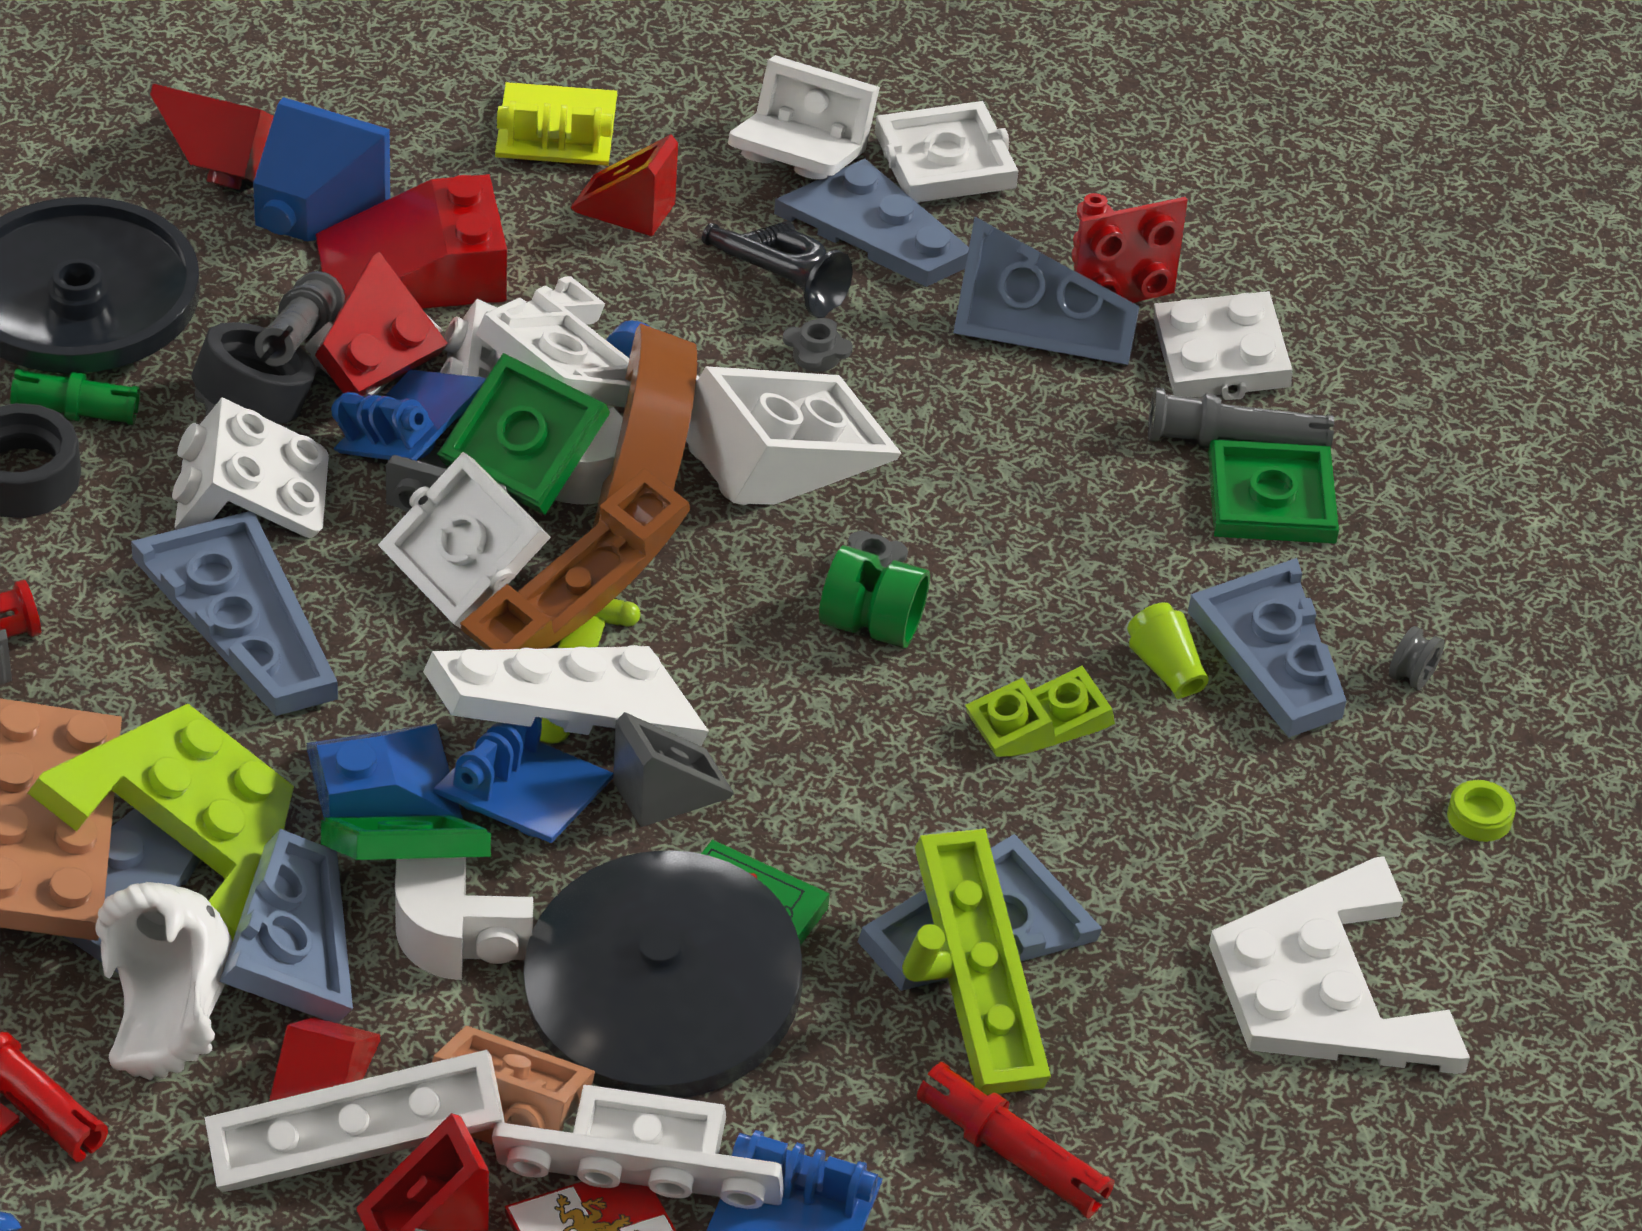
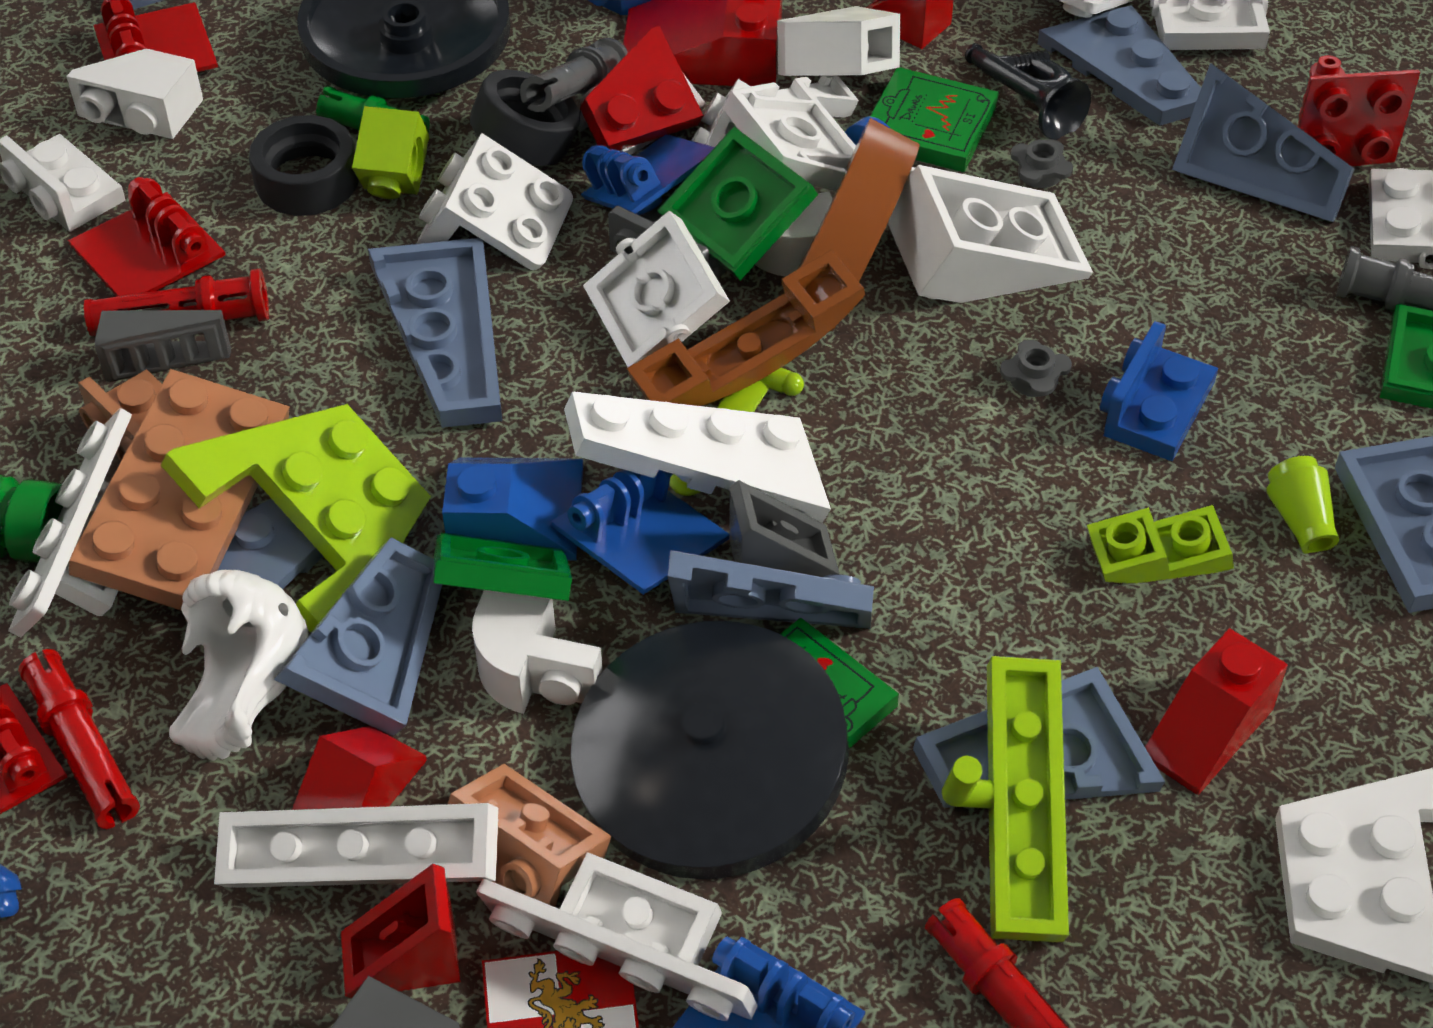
camera: 20 degrees right, 5 degrees up
(117, 432) = (390, 152): none -> lime brick
(572, 243) = (839, 43): none -> white slope
(659, 820) = (763, 593): none -> sand blue wing
(692, 305) = (938, 115): none -> green tile
(874, 596) = (1018, 401): green wheel -> none
(1000, 570) = (1155, 396): none -> blue bracket
(1134, 854) = (1216, 710): none -> red slope

